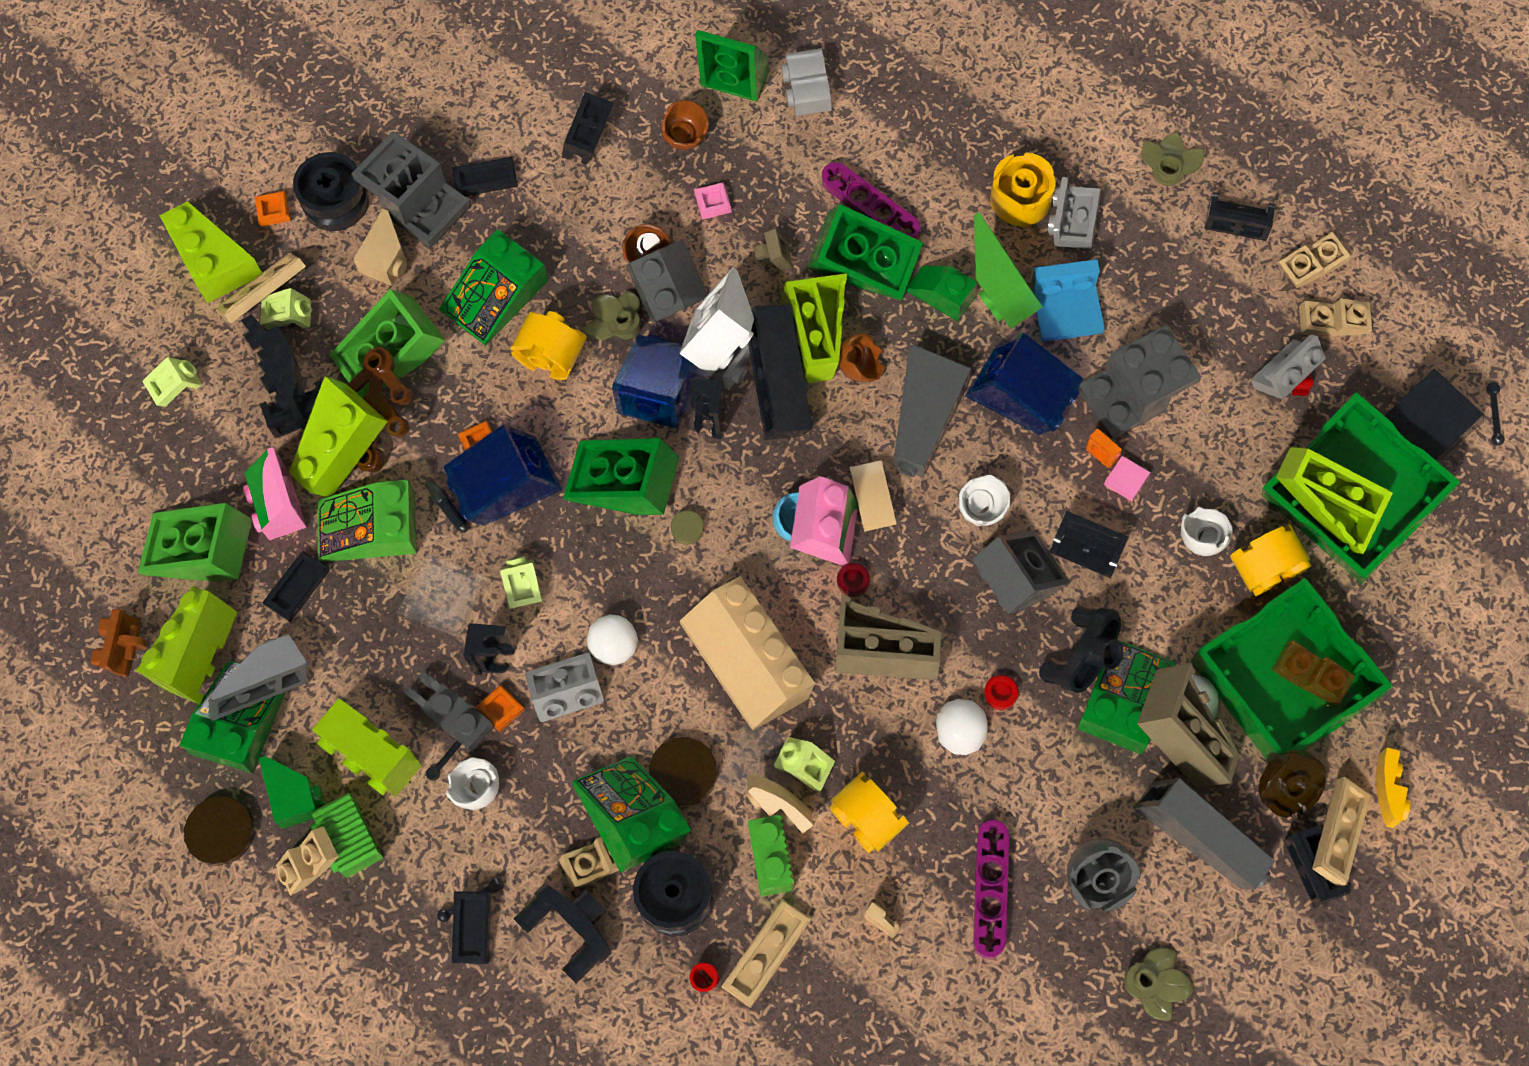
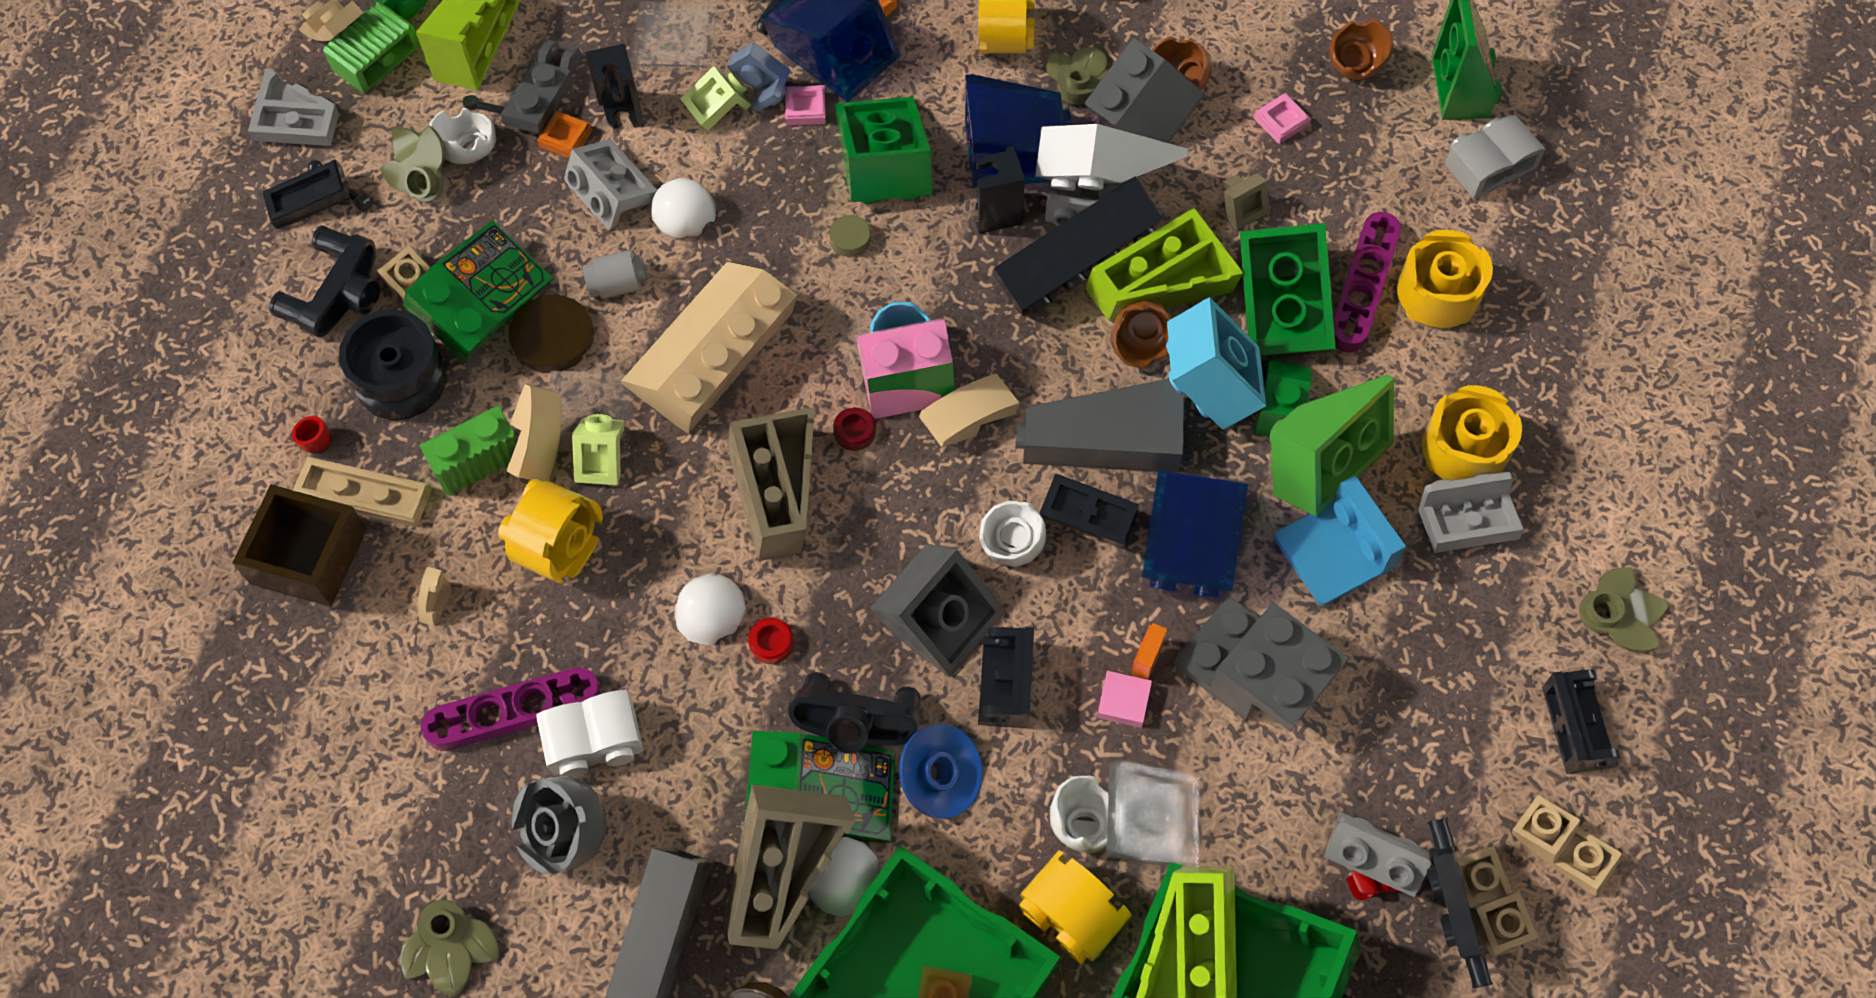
camera: 65 degrees right, 5 degrees down
(383, 920) = (291, 114): none -> light grey wing
(480, 826) = (416, 159): none -> olive plate
(521, 538) = (761, 72): none -> sand blue bracket
(553, 520) = (805, 105): none -> bright pink tile
(653, 706) = (614, 274): none -> light grey brick
(808, 1004) = (300, 545): none -> dark brown piece
(897, 153) = (1444, 279): none -> yellow brick
(915, 319) = (1215, 364): none -> medium azure brick
(987, 445) = (1090, 510): none -> black hinge
(1034, 836) = (590, 734): none -> white brick
(1144, 610) = (956, 766): none -> blue dish
(1219, 490) = (1152, 815): none -> clear tile
(1346, 334) = (1459, 923): none -> black plate

